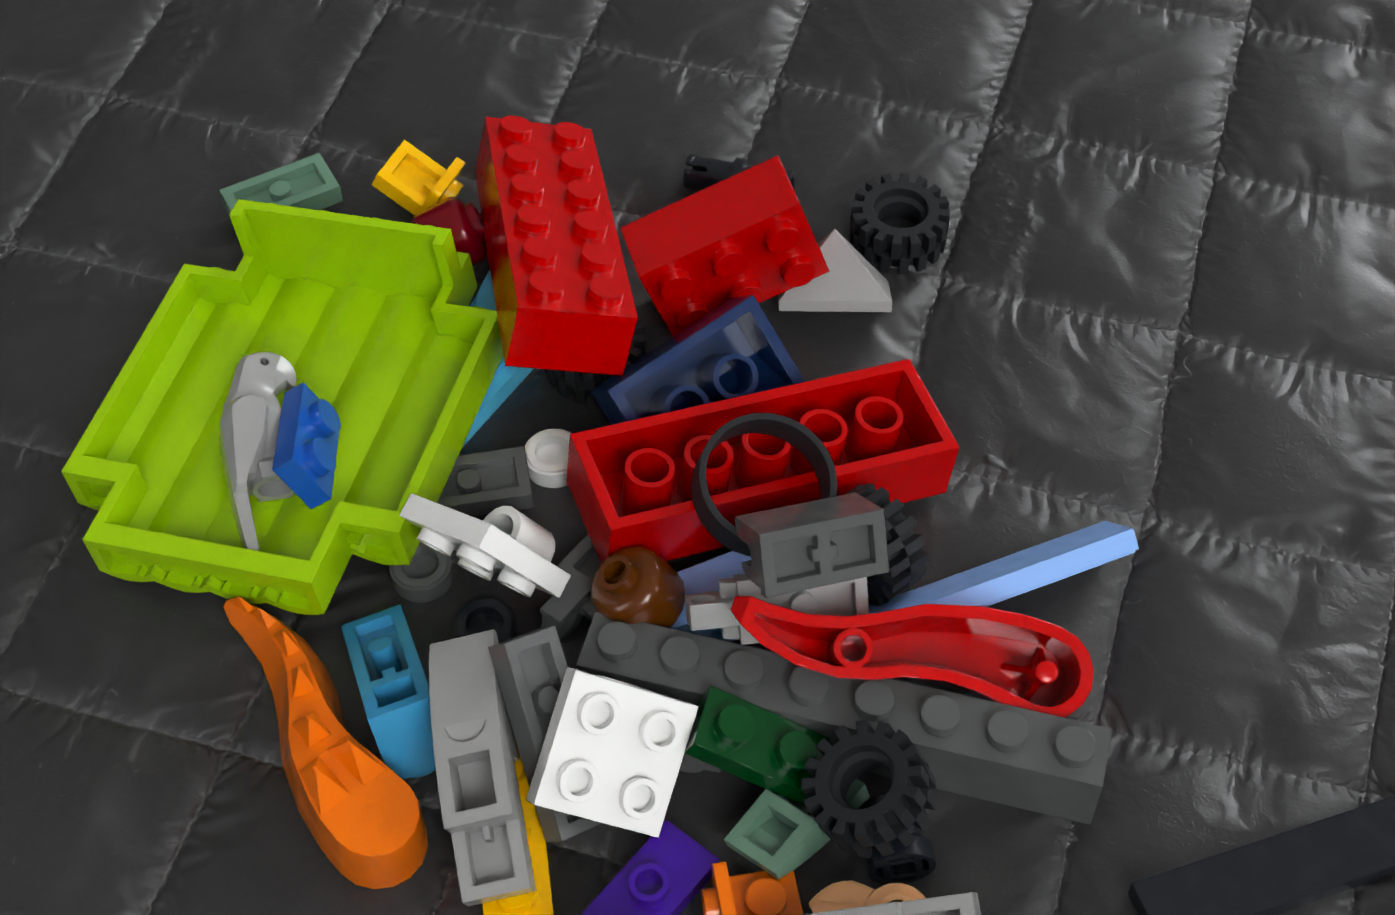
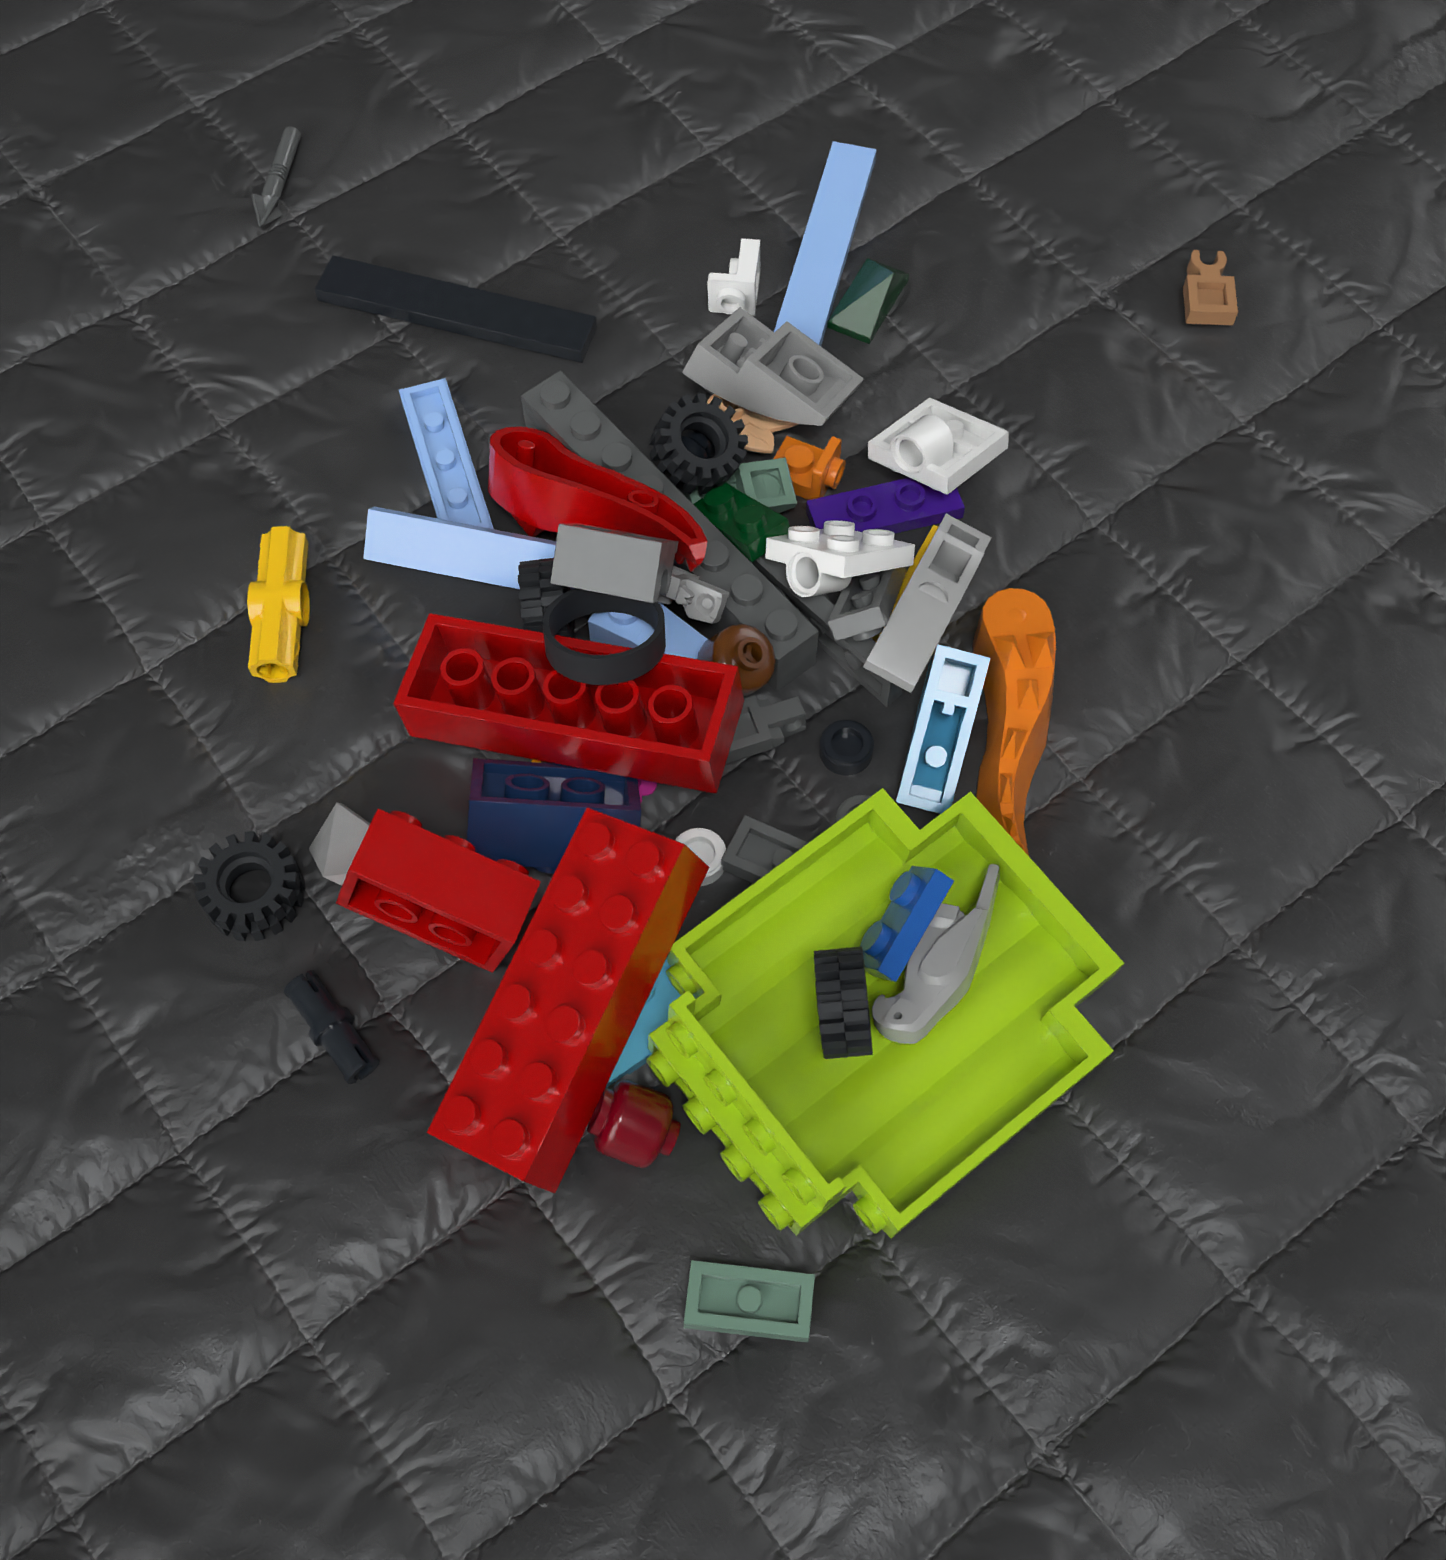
camera: 145 degrees left, 10 degrees up
(320, 345) = (842, 1003): none -> black tyre
(417, 180) = (610, 1217): yellow bracket -> none
(500, 543) = (826, 749): white plate -> none
(1126, 426) = (278, 605): none -> yellow piece
(1154, 675) = (444, 454): none -> light blue tile

